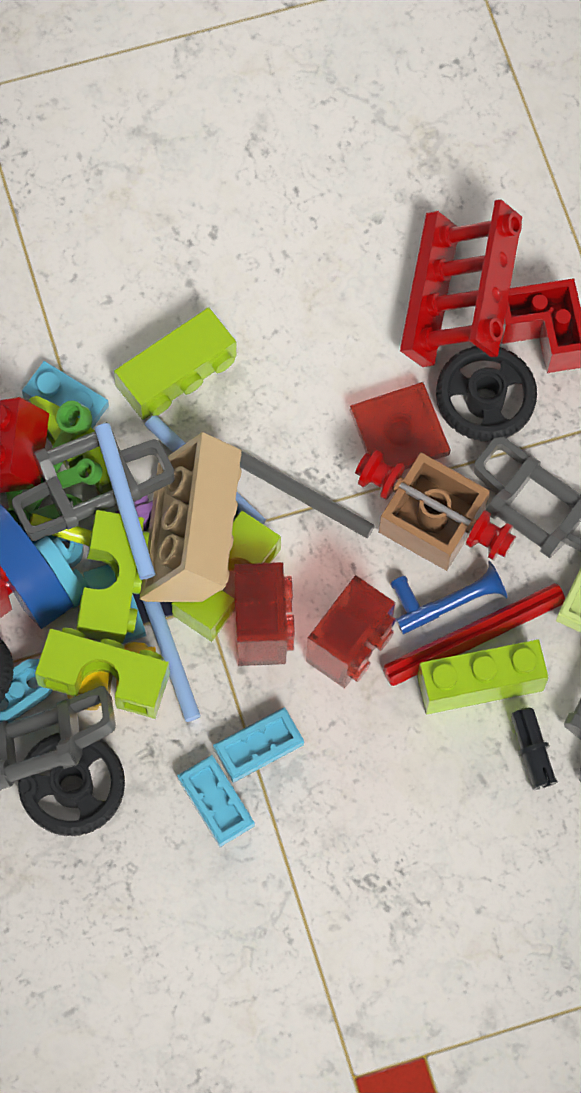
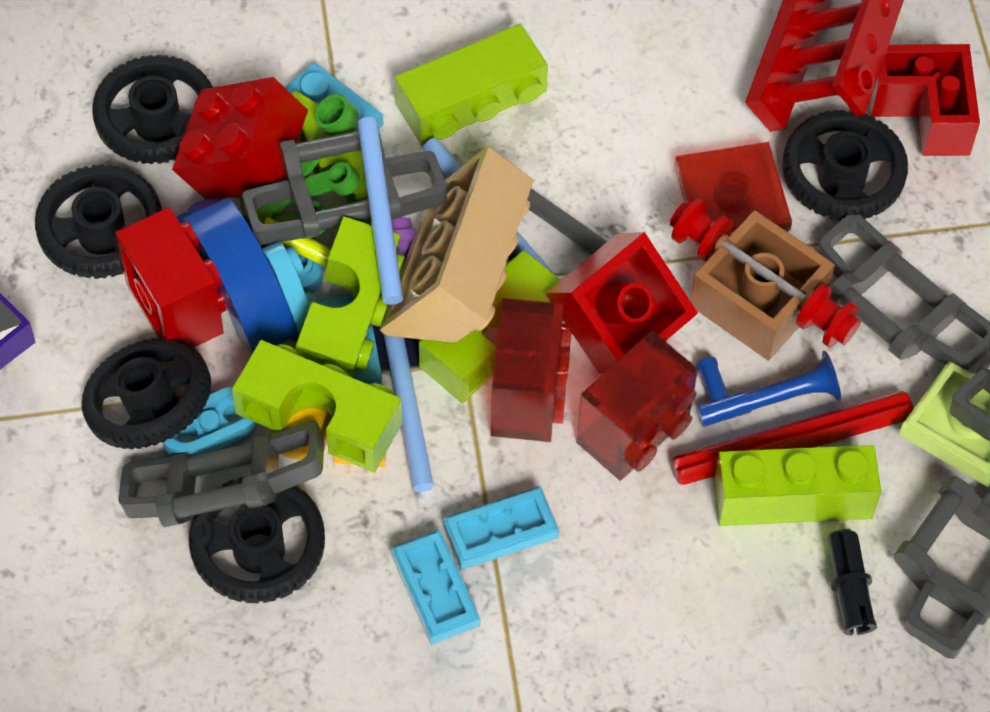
camera: 10 degrees right, 10 degrees down
(326, 545) = (621, 298): none -> red brick

